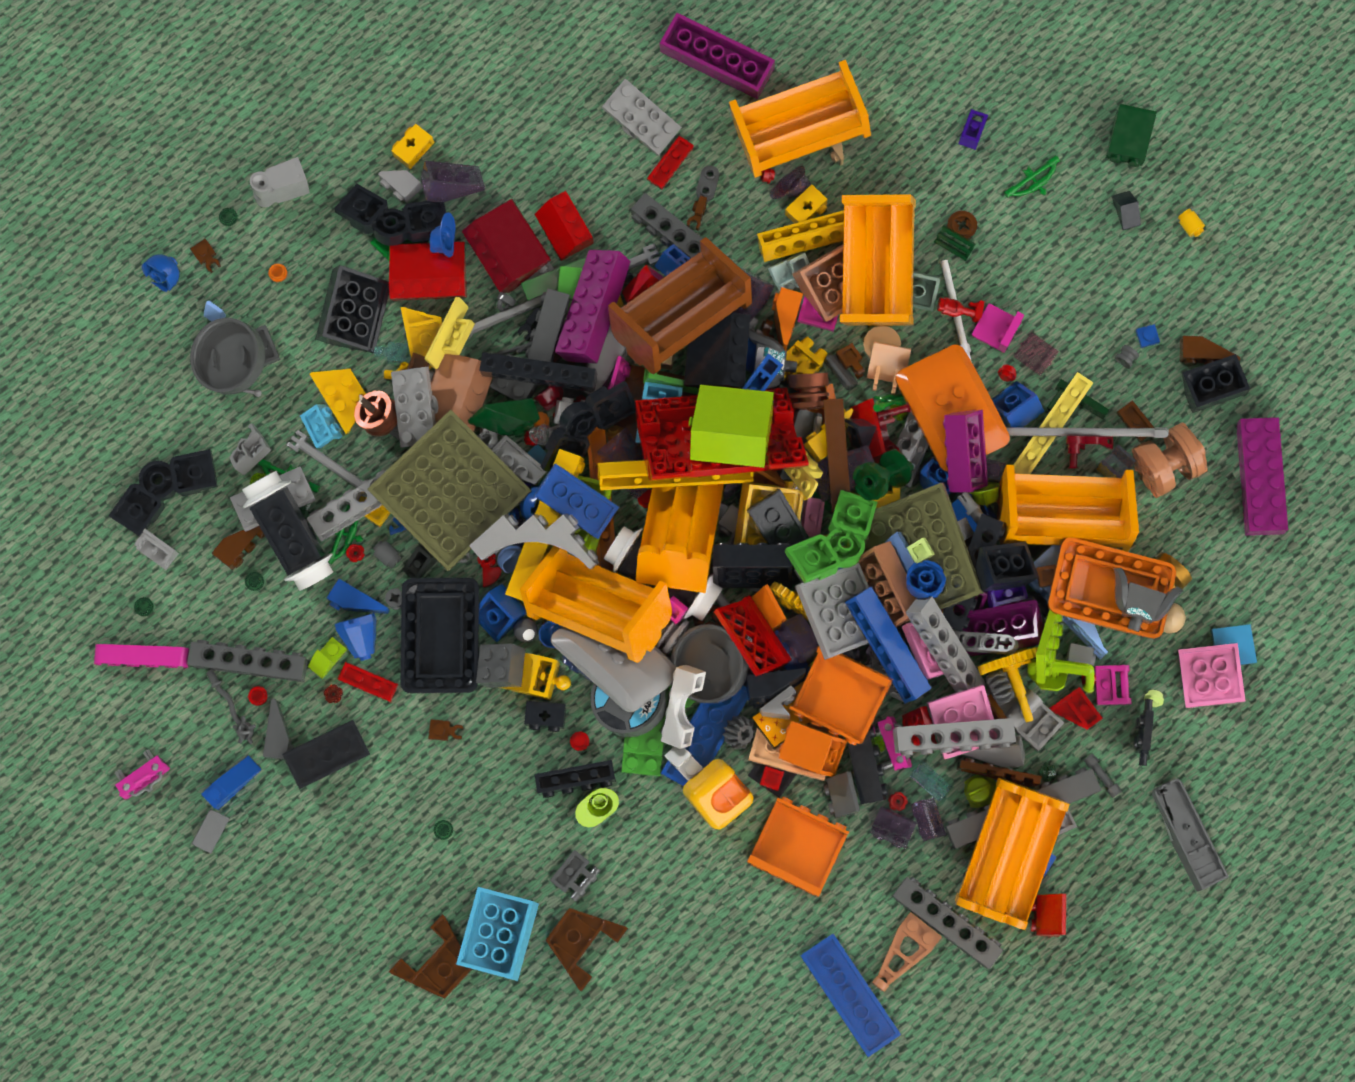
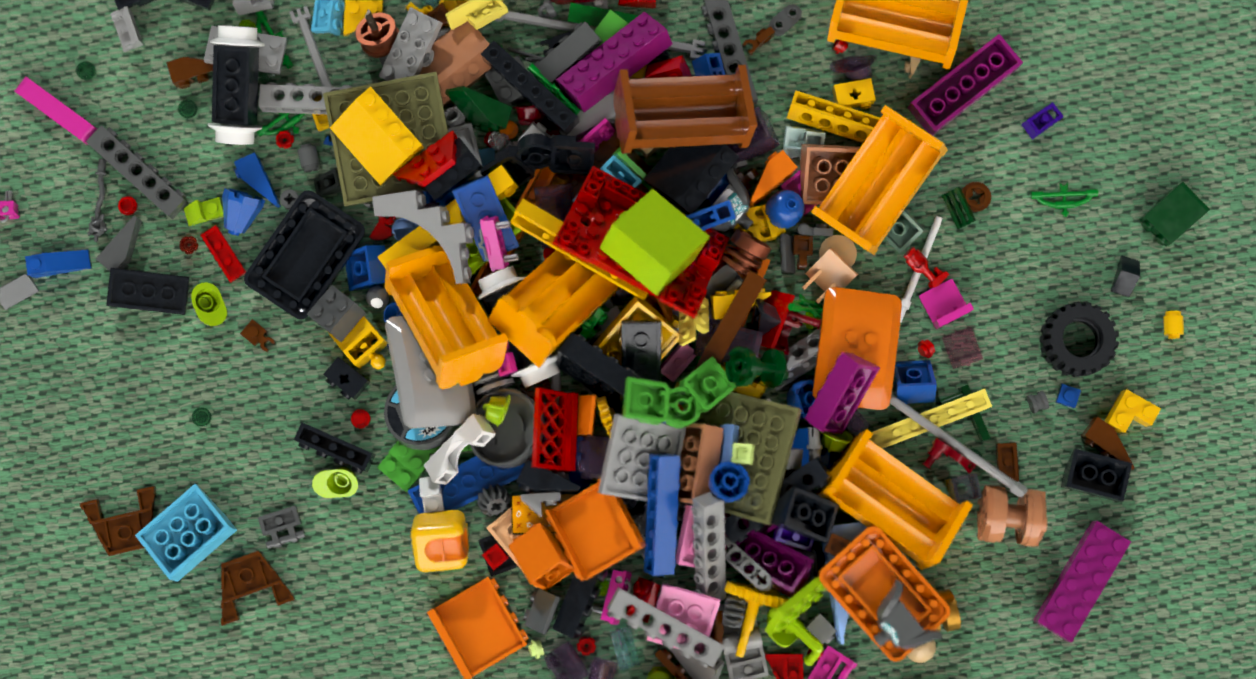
camera: 30 degrees right, 5 degrees up
(386, 730) = (208, 304): none -> lime piece
(437, 494) = (376, 136): none -> yellow slope
(498, 486) = (431, 162): none -> red wing
(515, 483) = (465, 167): none -> black slope
(559, 359) = (553, 89): none -> green piece
(598, 516) = (495, 247): none -> dark pink piece
(693, 650) = (496, 409): none -> lime piece
(723, 525) = (590, 326): none -> green plate
(815, 334) = (785, 208): none -> blue cylinder
(854, 334) = (820, 230): none -> dark grey plate
(858, 831) = (536, 649): none -> yellowish green plate
(891, 140) = (965, 85): none -> magenta brick
(1131, 261) = (1099, 324): none -> black tyre
(1204, 311) = (1128, 408): none -> yellow brick

